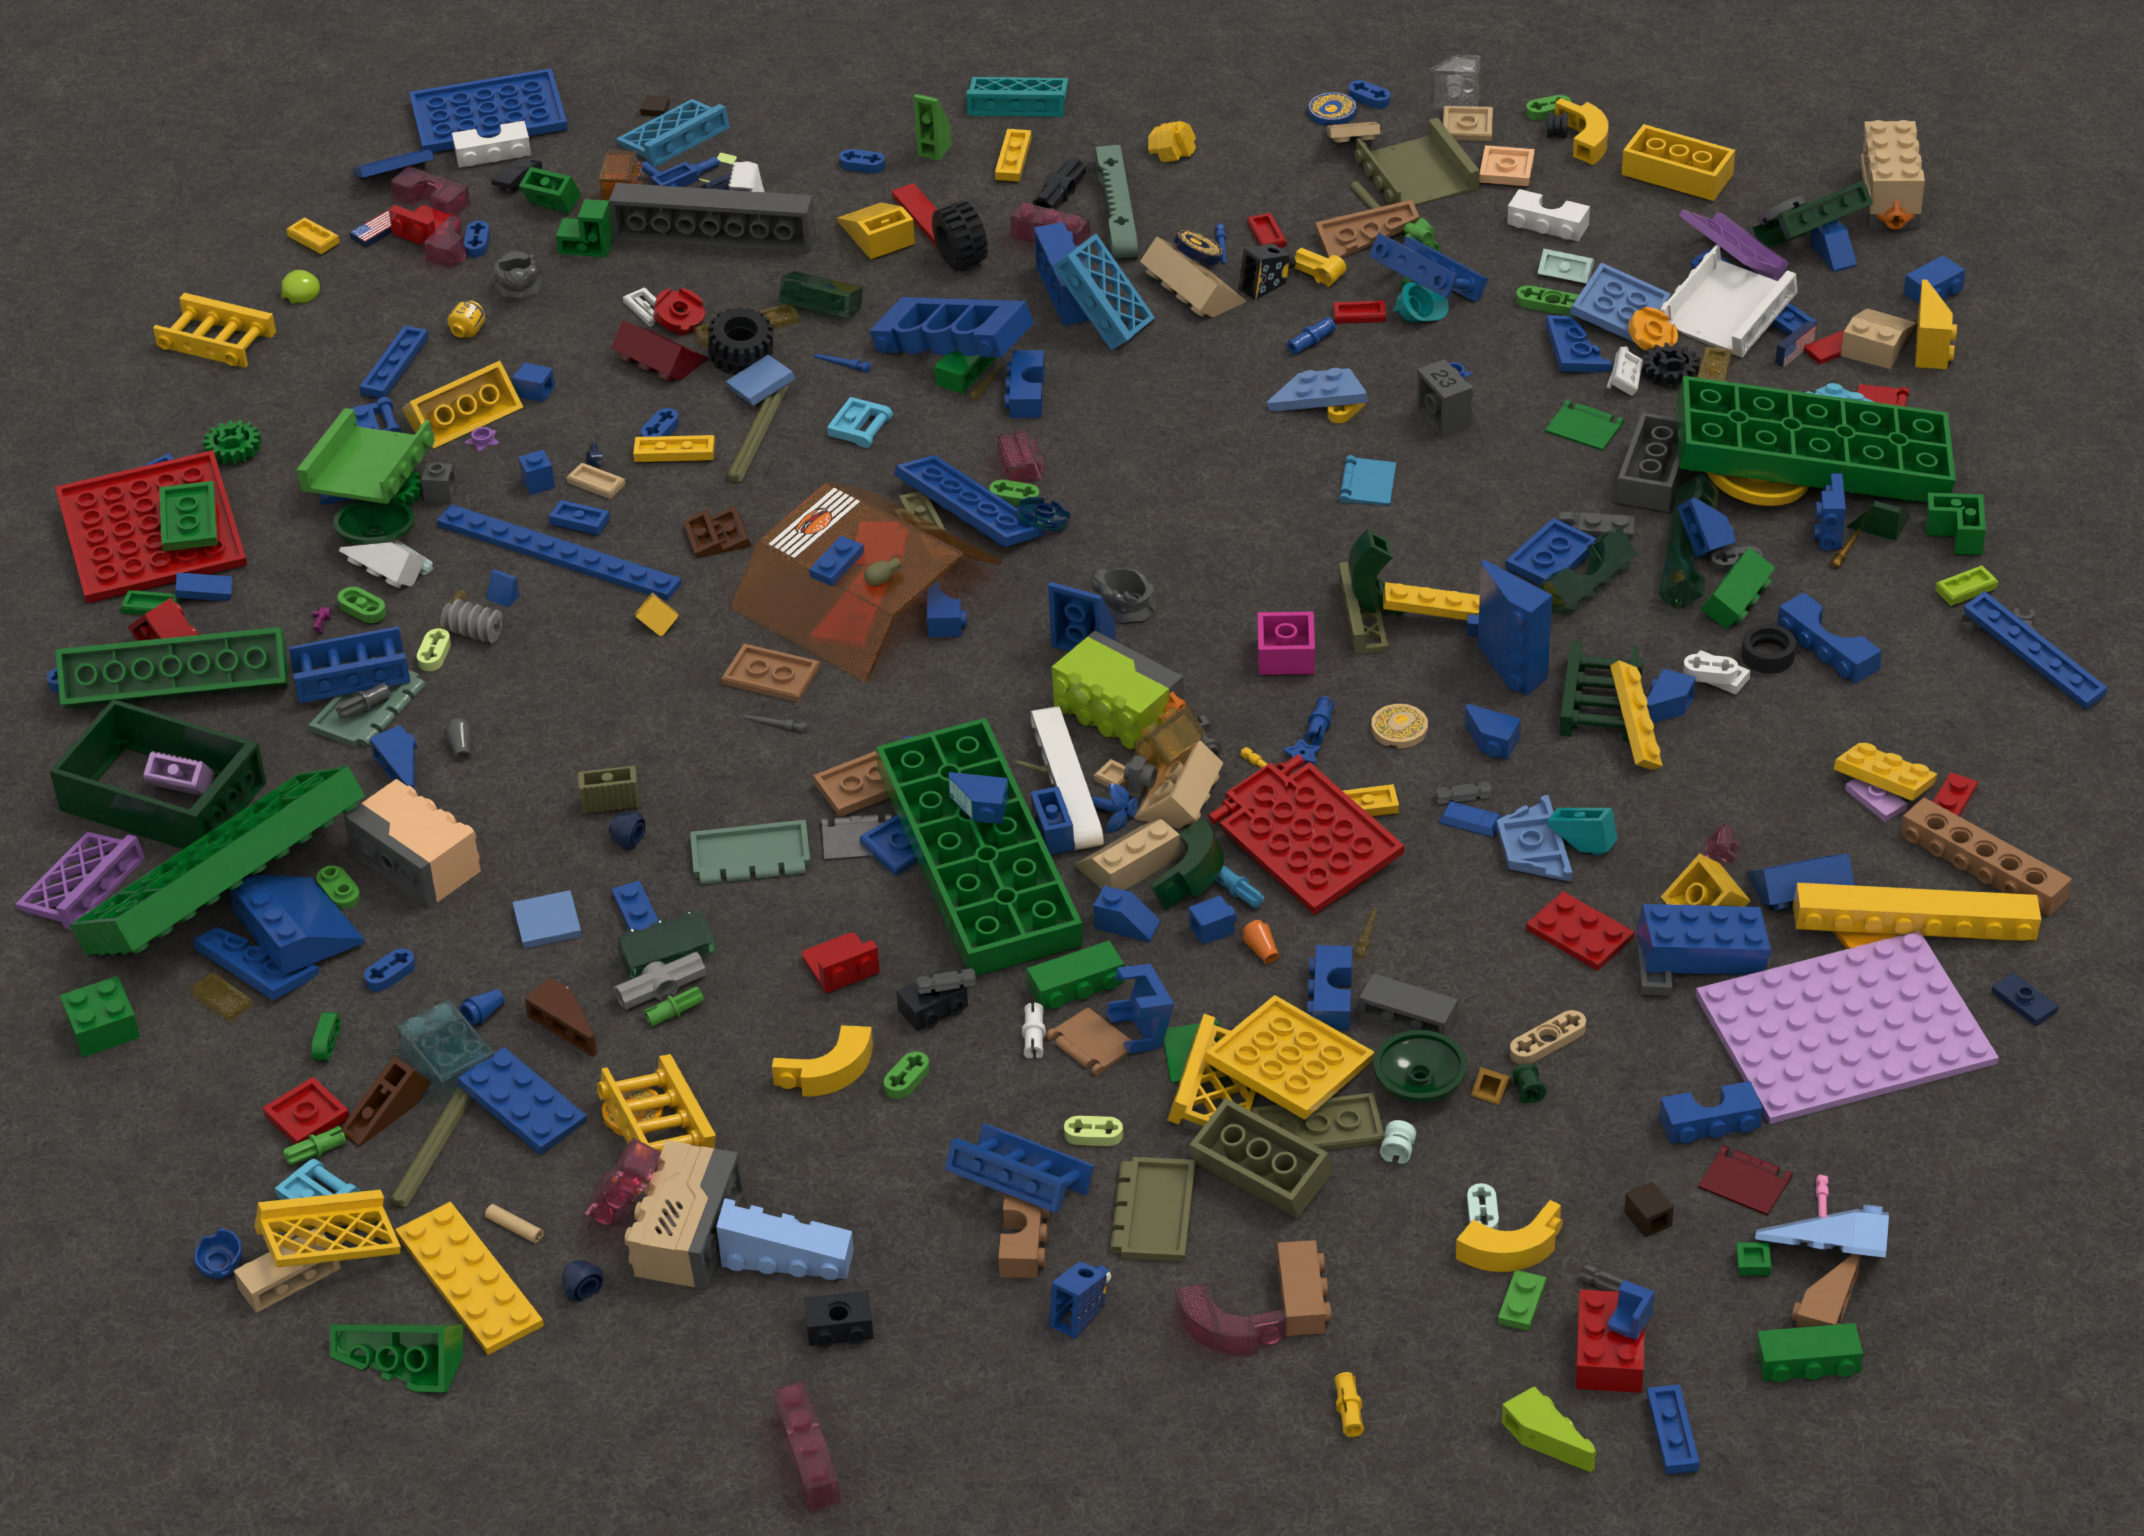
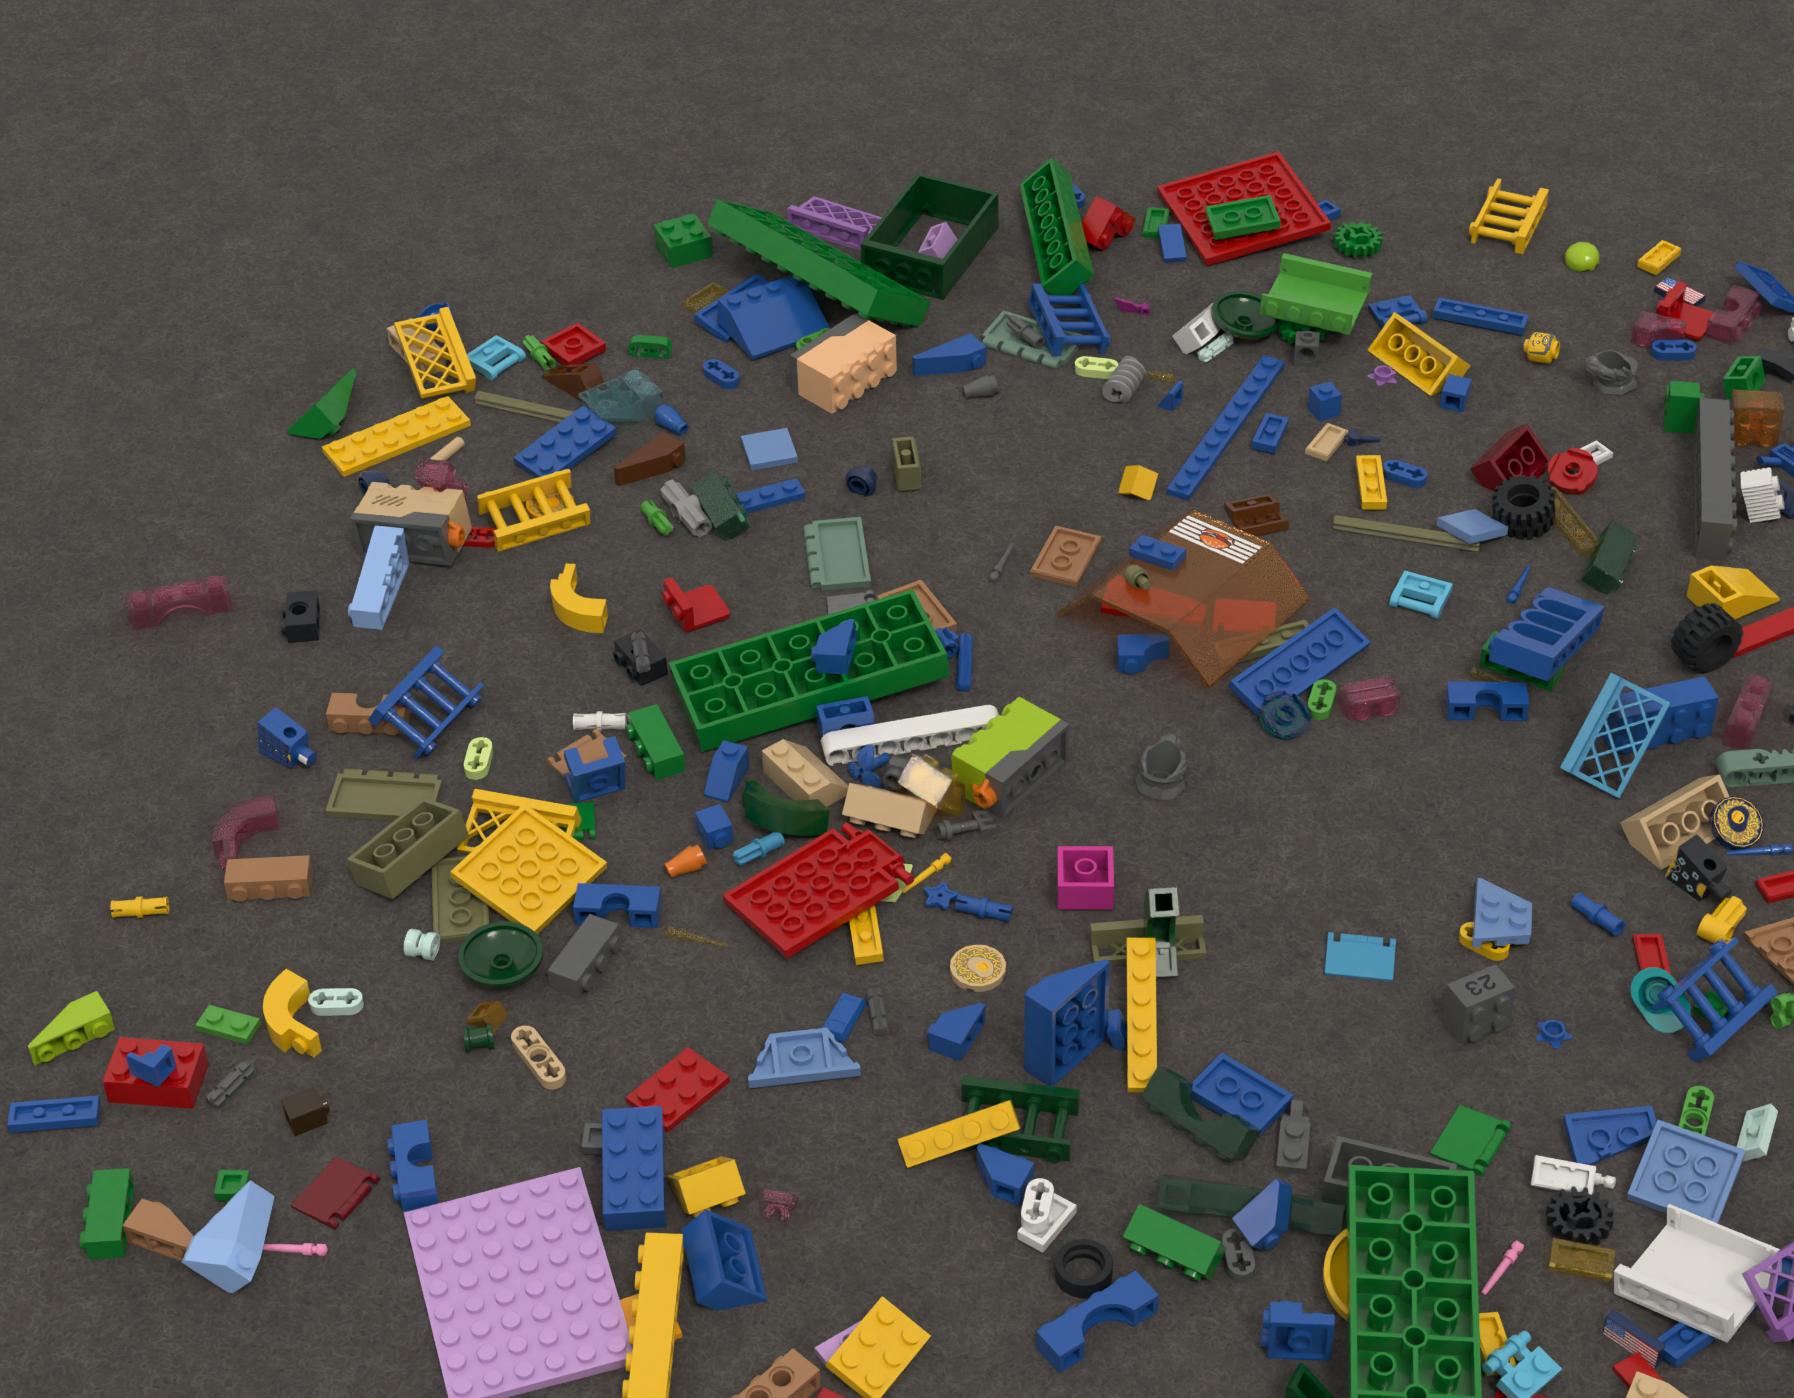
camera: 90 degrees right, 0 degrees up
(366, 606) = (1151, 324): bright green plate -> none
(902, 1072) = (561, 649): bright green beam -> none
(1077, 615) = (1106, 728): blue slope -> none
(1585, 828) = (804, 1090): teal slope -> none
(1650, 328) = (1639, 1202): light orange tile -> none
(1842, 554) = (1251, 1354): pearl gold piece -> none

